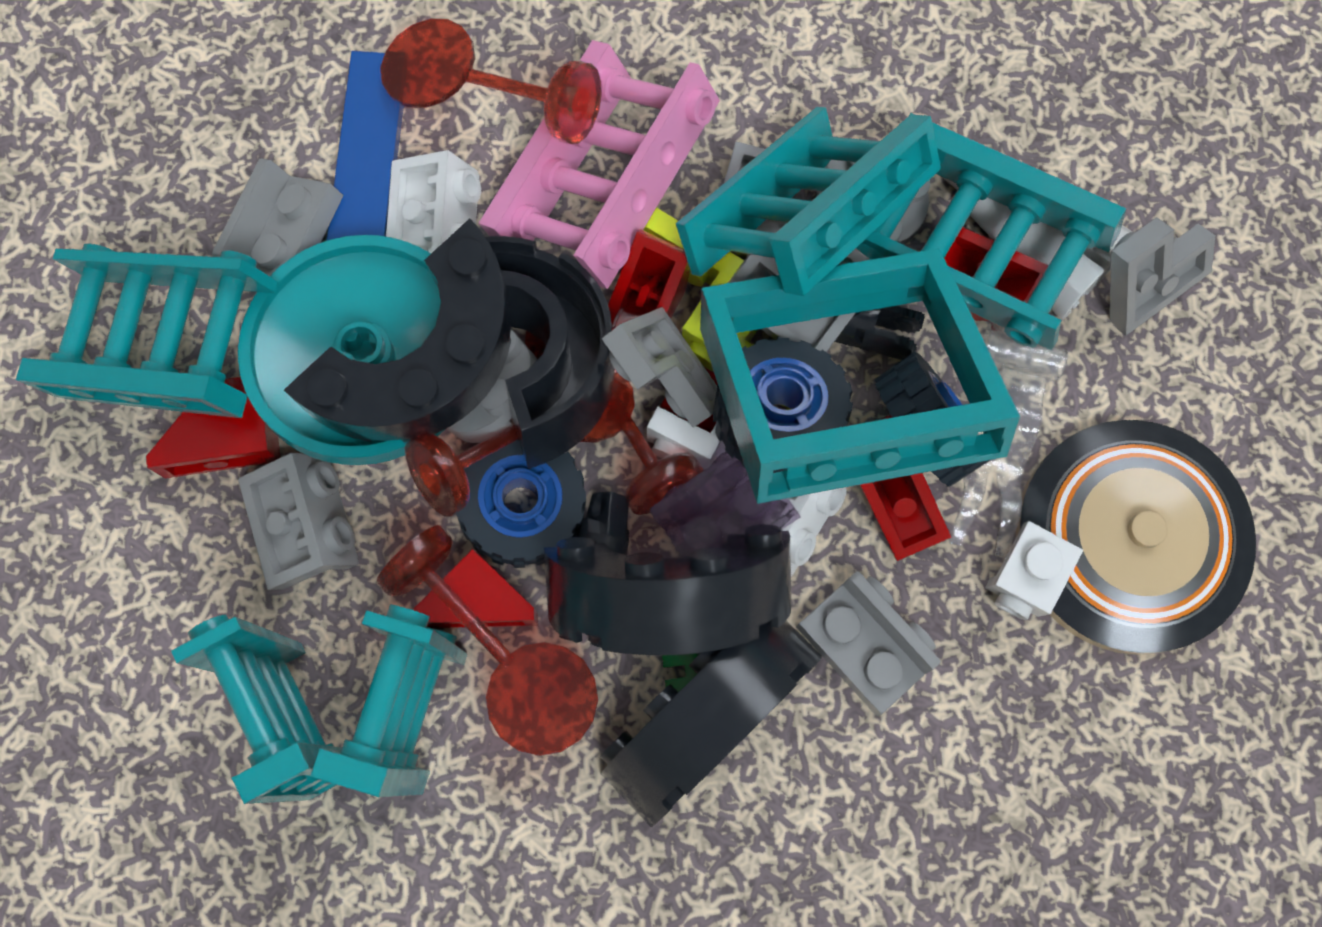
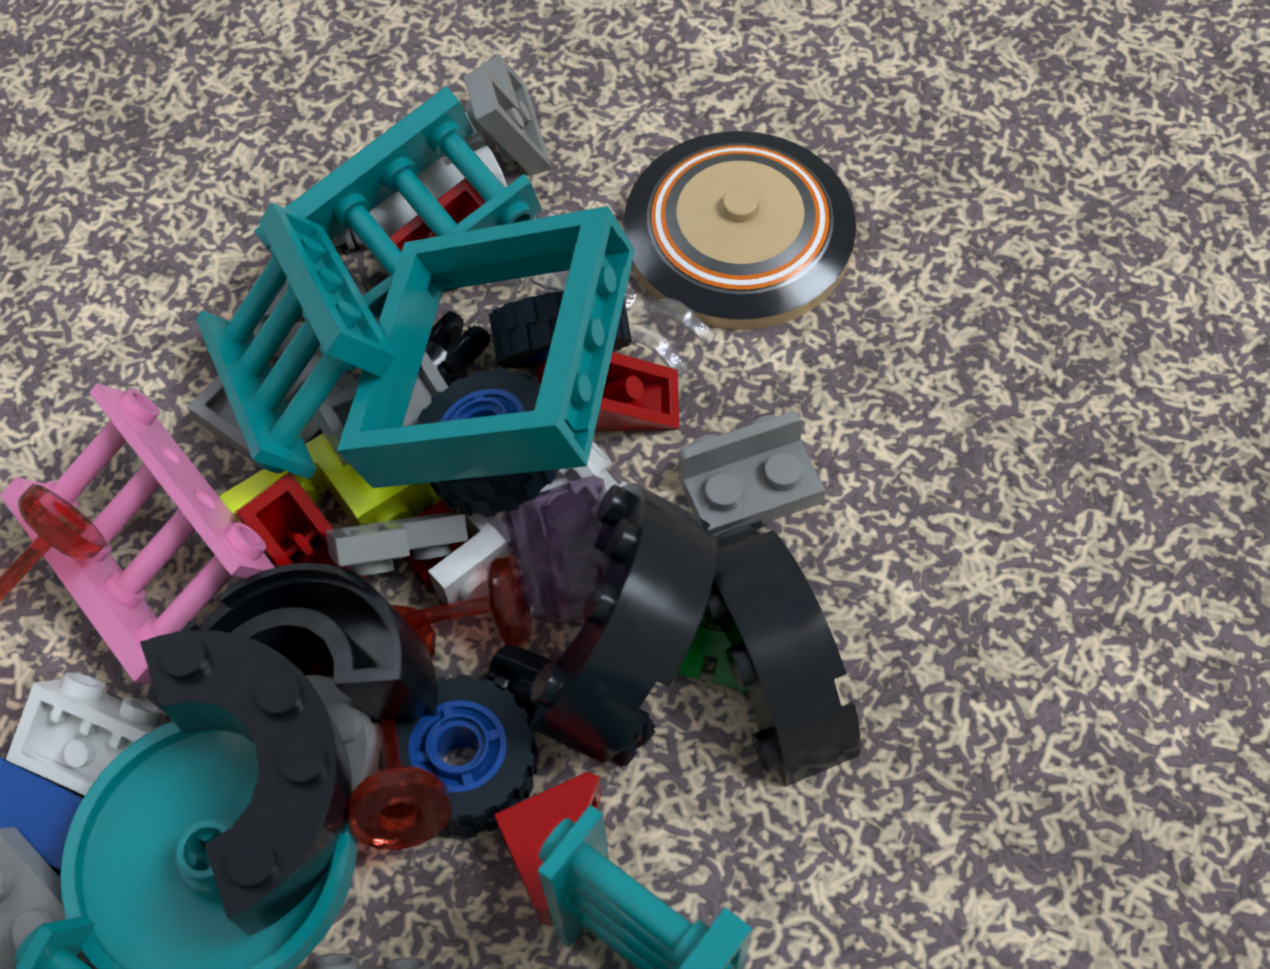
camera: 65 degrees left, 15 degrees down
(538, 694) = (679, 797): clear red piece -> none
(1034, 572) = (742, 310): white bracket -> none

